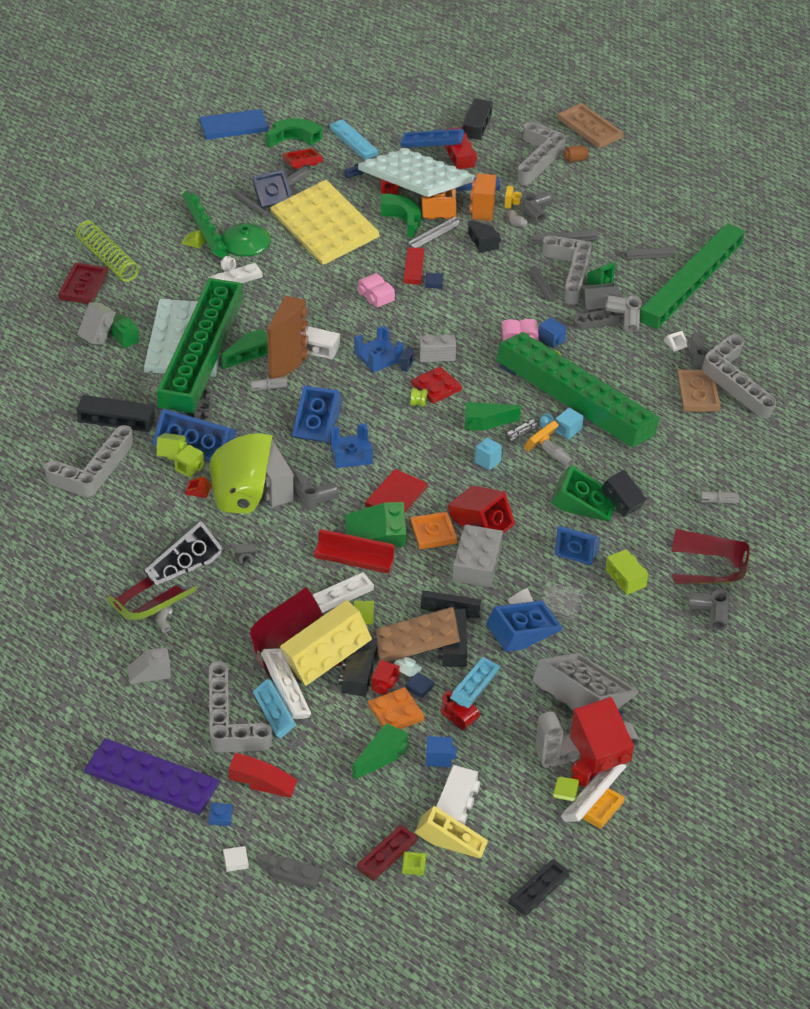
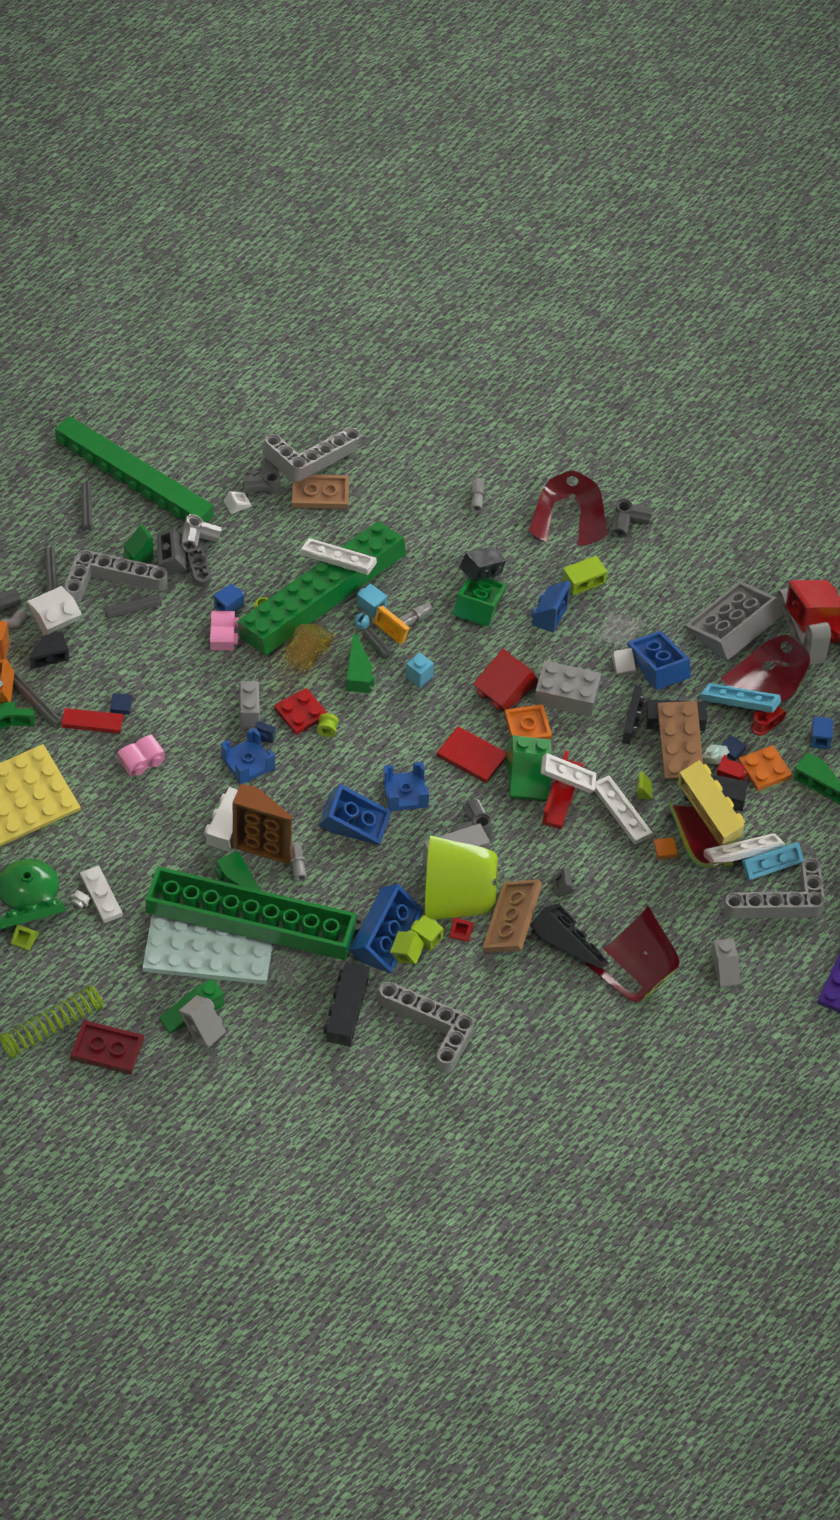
camera: 90 degrees left, 10 degrees up
(206, 513) = (512, 916): none -> medium nougat plate
(362, 542) = (568, 773): none -> white plate
(508, 378) = (307, 644): none -> clear yellow brick
(508, 705) = (778, 680): none -> dark red piece
(523, 234) = (54, 610): none -> white slope
(603, 385) = (338, 556): none -> white tile

